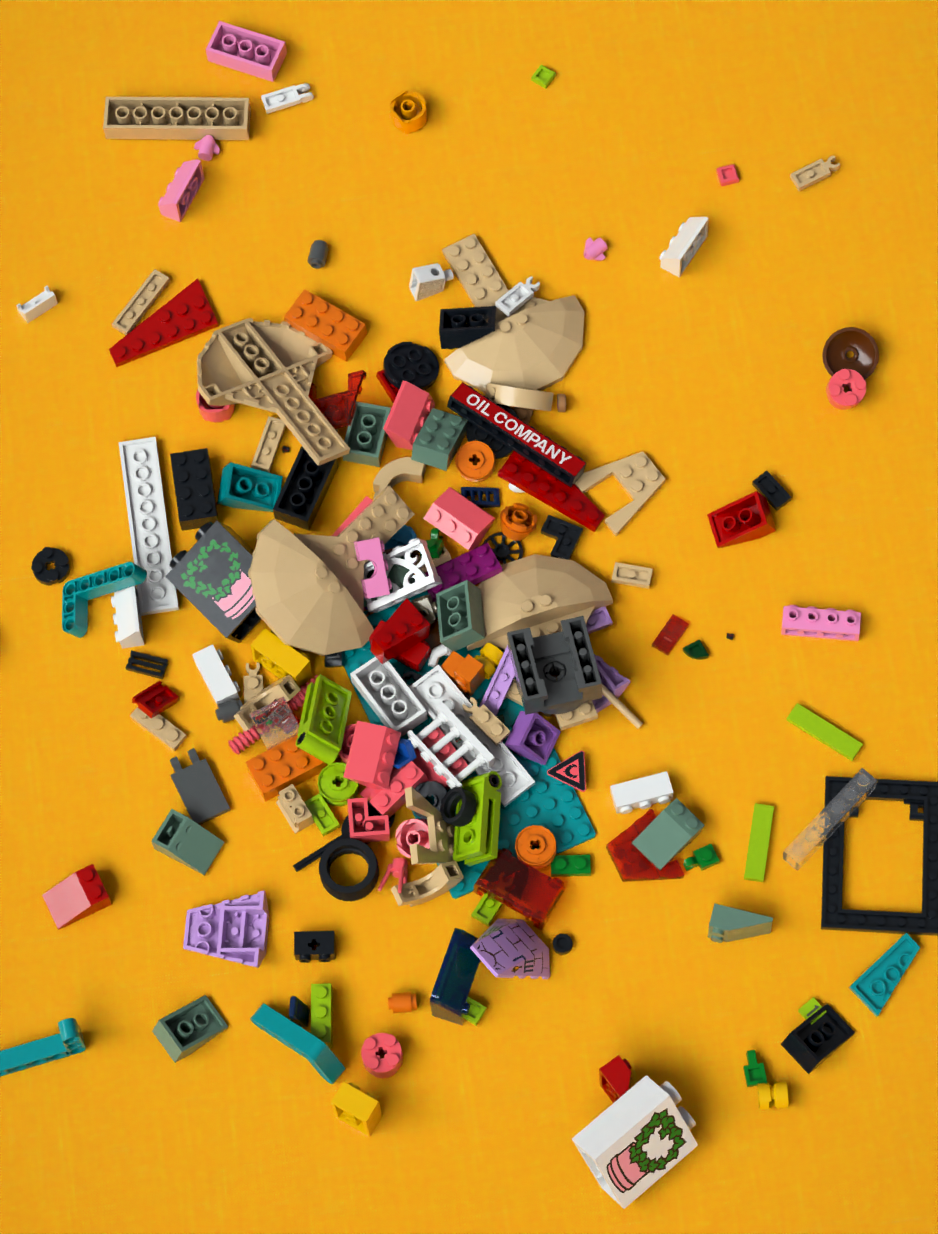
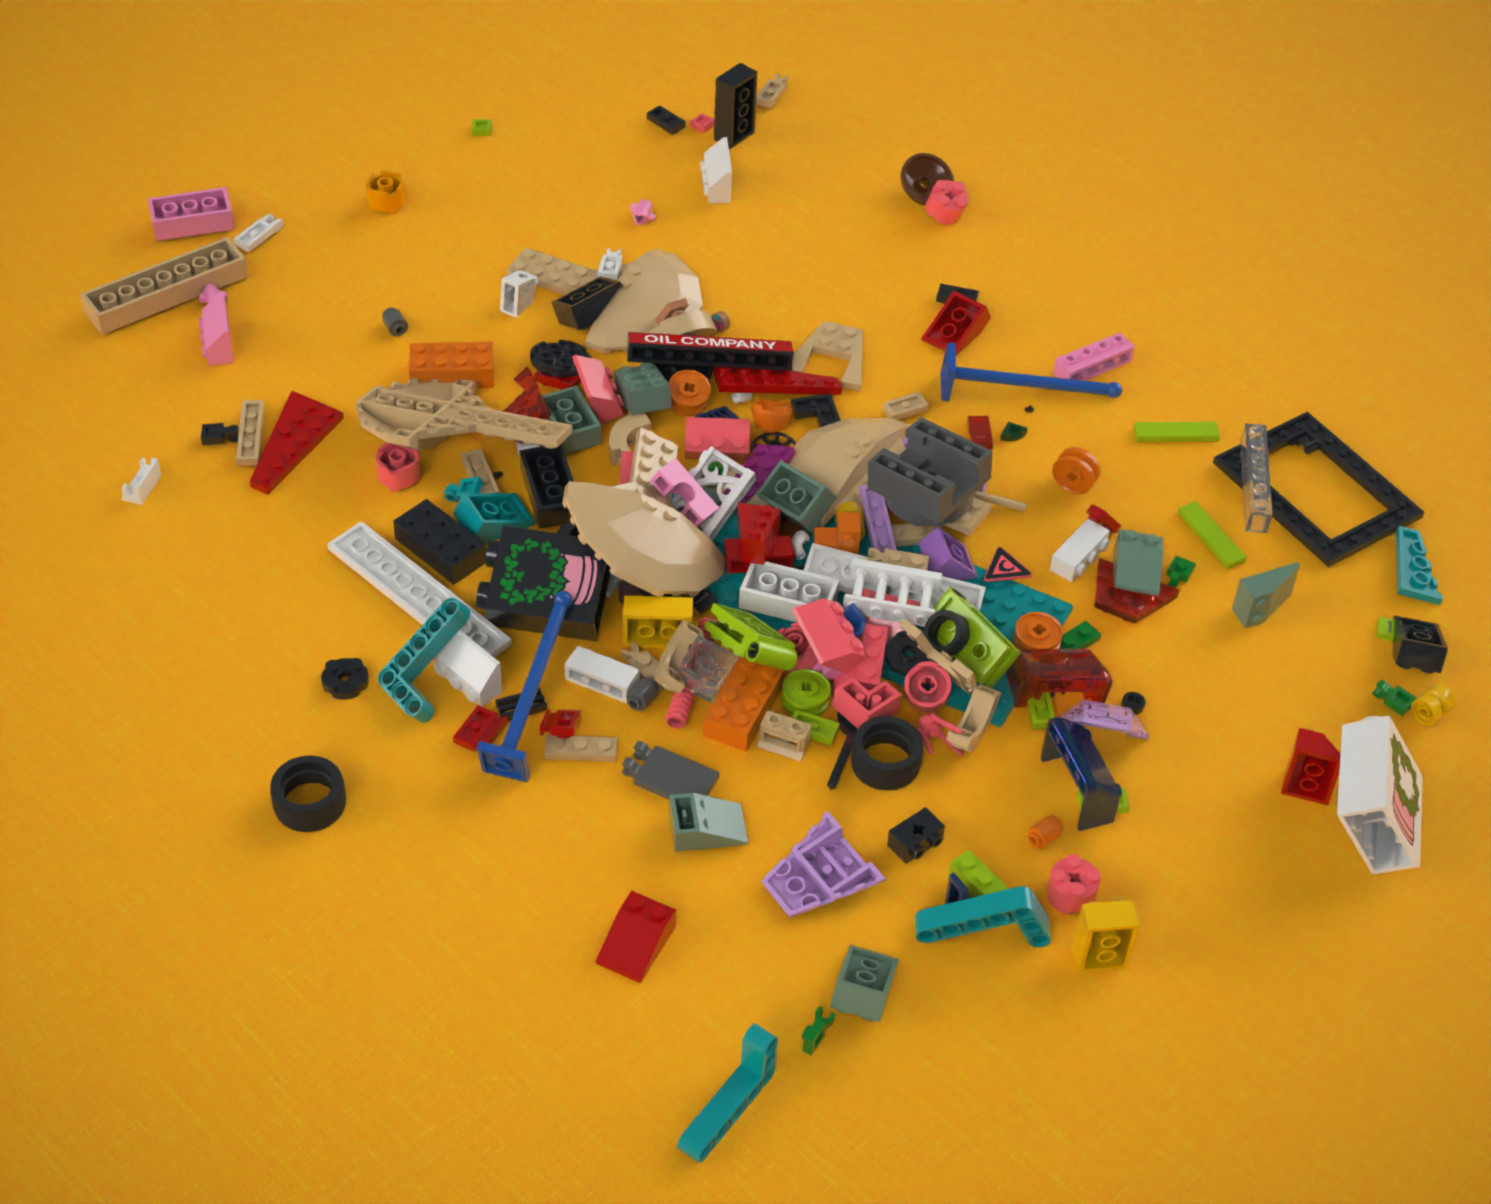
camera: 45 degrees left, 20 degrees down
(93, 706) = (505, 759): none -> blue piece
(103, 668) = (480, 726): none -> red plate
(116, 288) = (216, 433): none -> black plate
(130, 1042) = (814, 1034): none -> green plate
(244, 453) = (468, 485): none -> teal plate
(516, 380) = (672, 309): none -> nougat plate
(679, 778) = (1102, 518): none -> red plate
(688, 567) = (950, 372): none -> blue piece
(697, 155) = (666, 120): none -> black plate
(698, 722) = (1076, 470): none -> orange wheel
(745, 185) = (735, 104): none -> black brick

